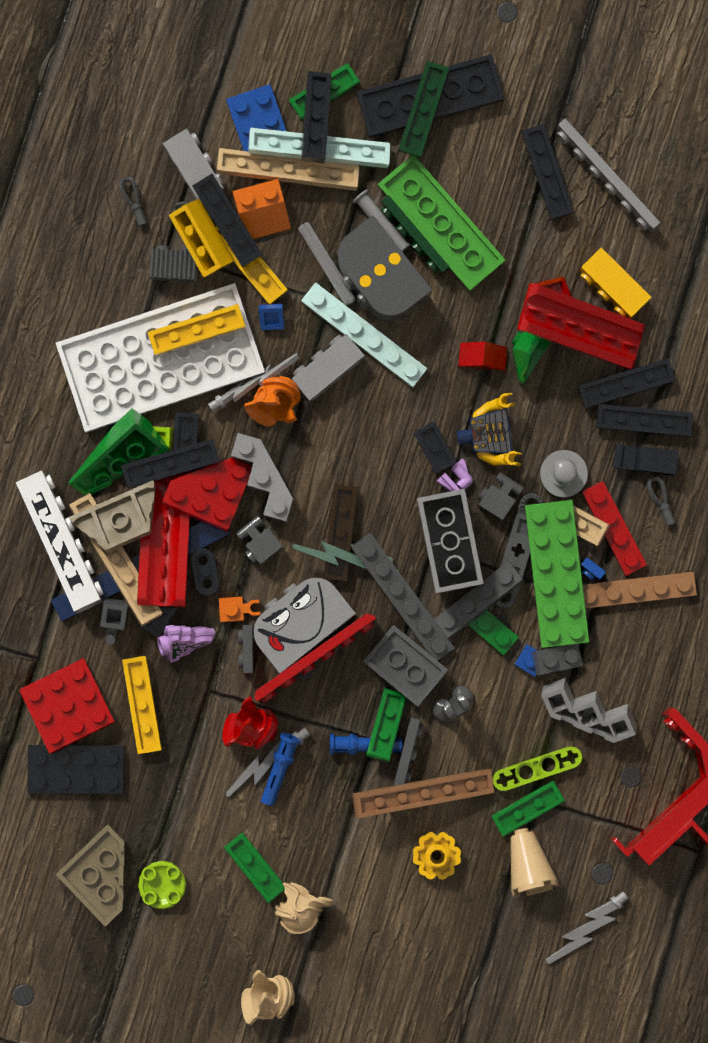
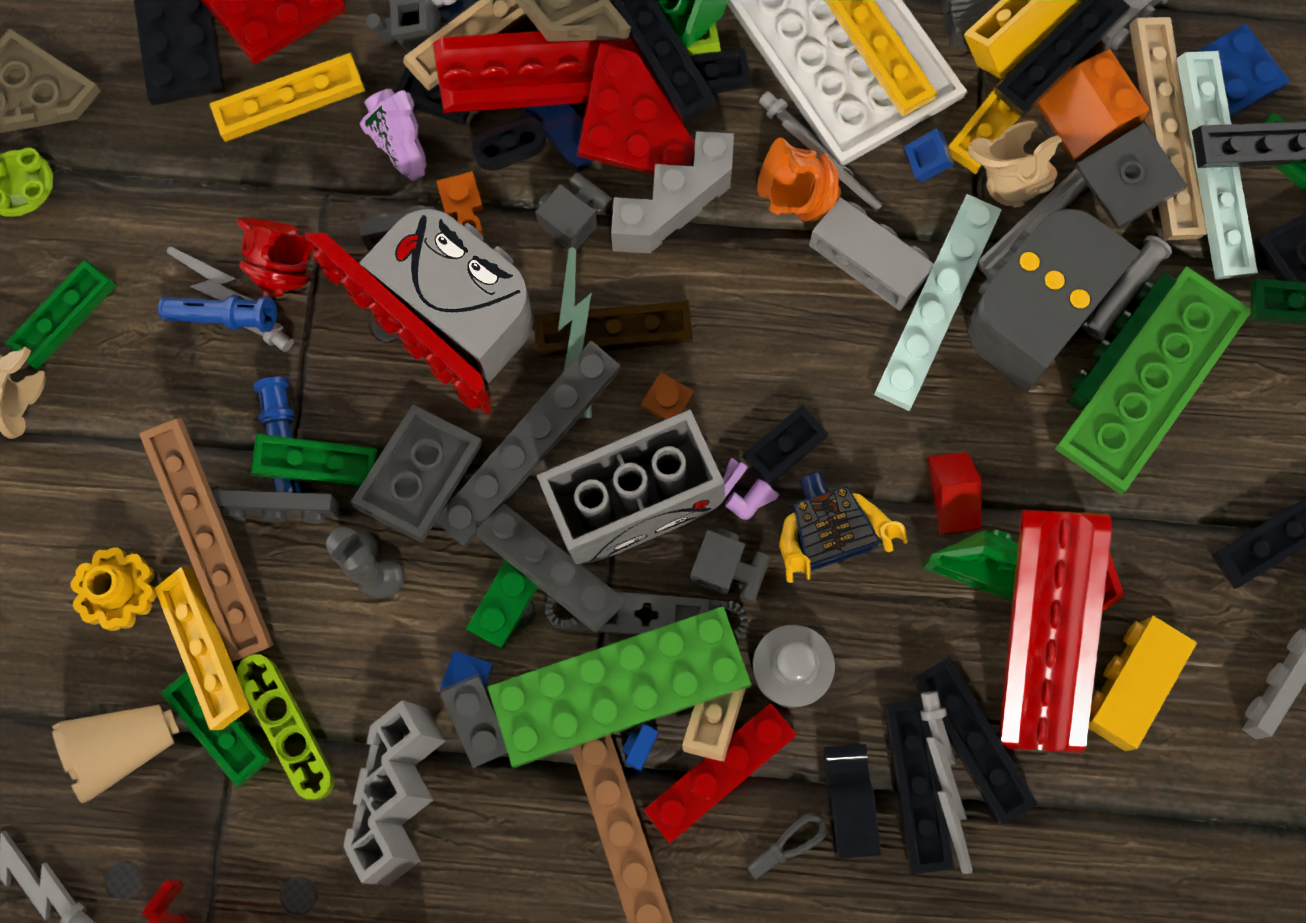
camera: 80 degrees right, 10 degrees down
(294, 270) = (1010, 171): none -> tan helmet
(316, 201) = (1131, 176): none -> dark grey plate
(390, 510) = (666, 398): none -> dark orange plate
(483, 807) = (202, 648): none -> yellow plate
(630, 403) = (943, 758): none -> light grey piece

